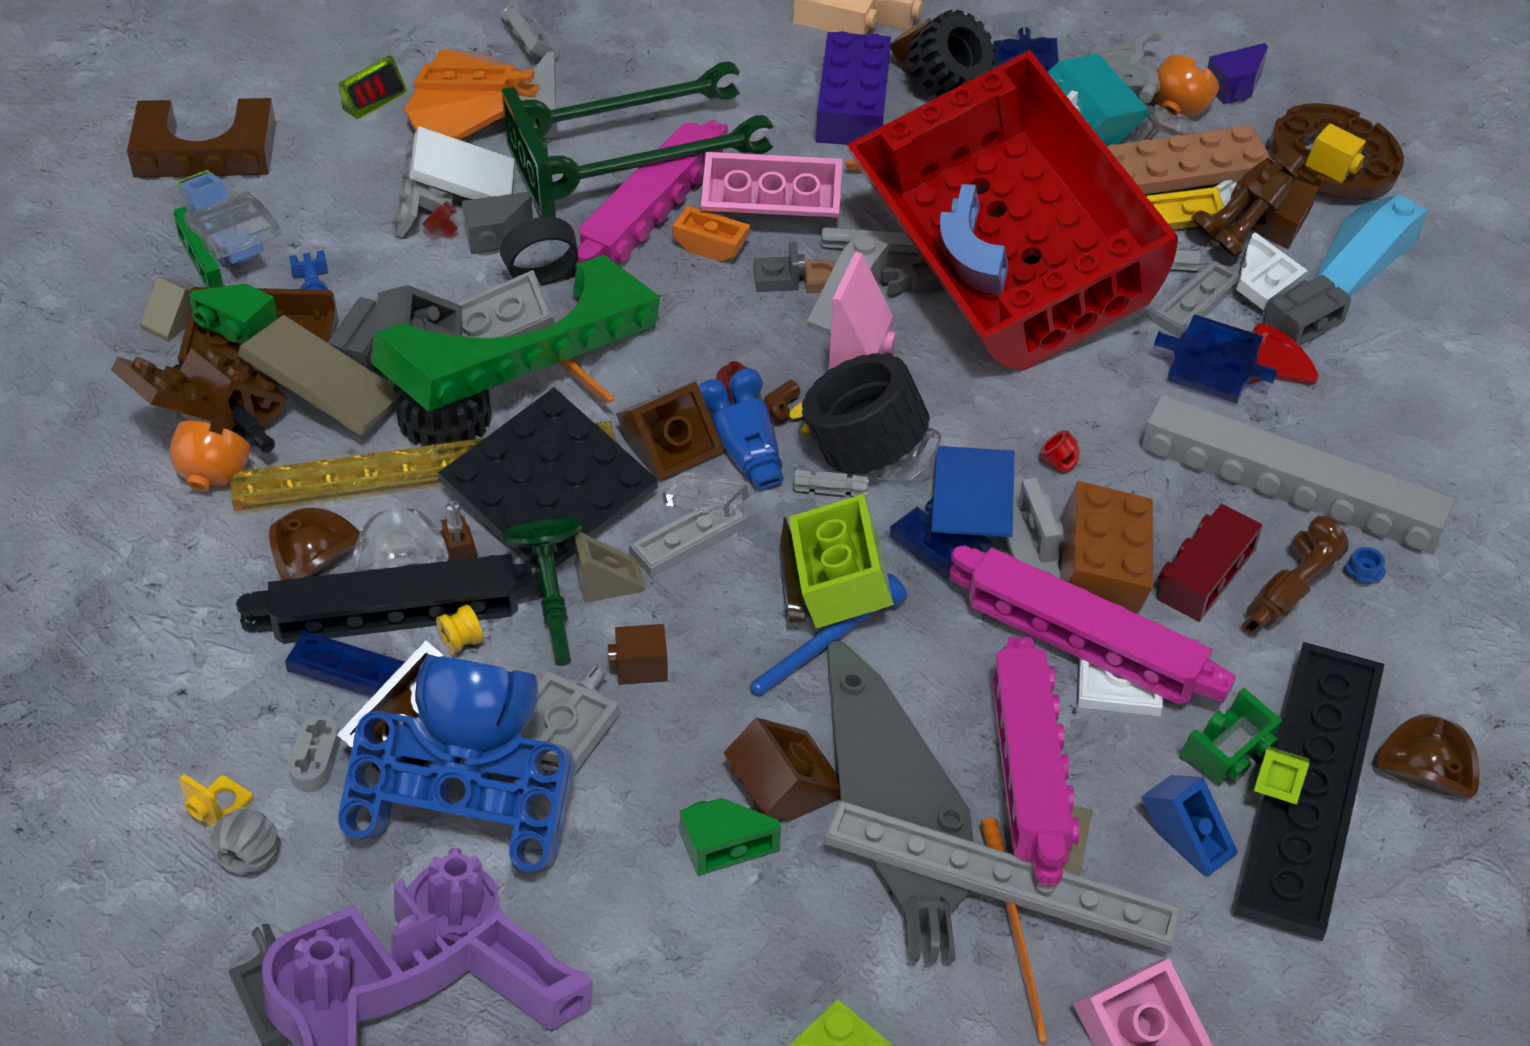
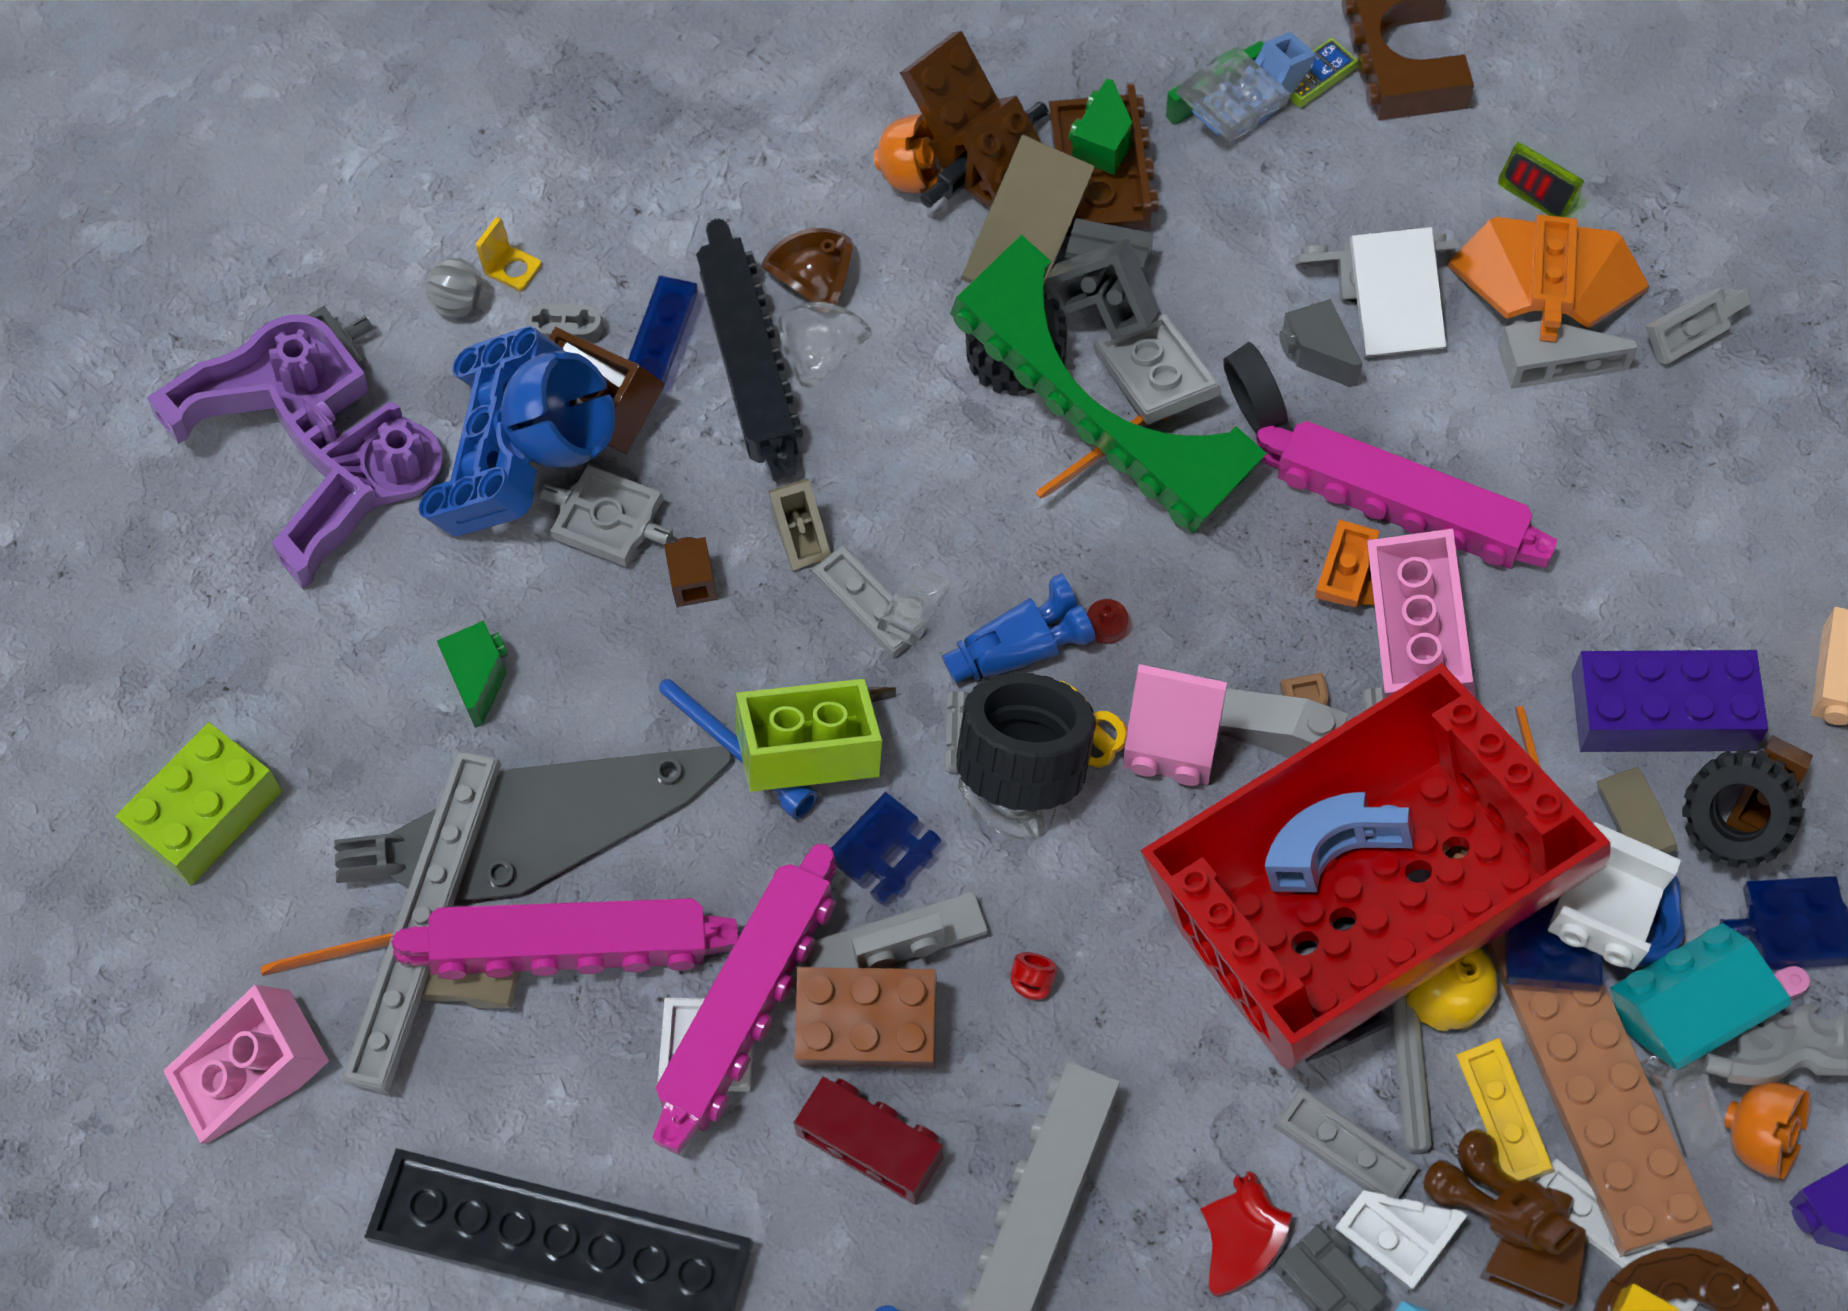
camera: 90 degrees right, 15 degrees up
(167, 308) = (1148, 79): dark tan slope -> none
(310, 270) = (1223, 183): blue hinge -> none
(349, 474) = (934, 352): clear yellow plate -> none
(441, 219) = (1316, 290): clear red tile -> none
(457, 534) = (837, 390): reddish brown piece -> none
(459, 629) = (711, 410): yellow wheel -> none
(530, 152) = (1439, 346): dark green piece -> none
(542, 537) = (801, 461): dark green dish -> none
(548, 467) = (914, 455): black plate -> none
(671, 431) = (1002, 557): reddish brown slope -> none
(777, 401) = (1077, 666): reddish brown arm -> none
(779, 272) = (1300, 648): dark grey bracket -> none
(782, 770) = (553, 715): reddish brown slope -> none
(973, 491) = (950, 875): blue piece -> none
(1190, 821) = (500, 1105): blue slope -> none
(1215, 358) = (1212, 1156): clear blue plate -> none
(1233, 738) = (609, 1152): green window -> none
(1281, 775) = (552, 1194): lime panel -> none
(1317, 552) = (827, 1222): reddish brown piece -> none

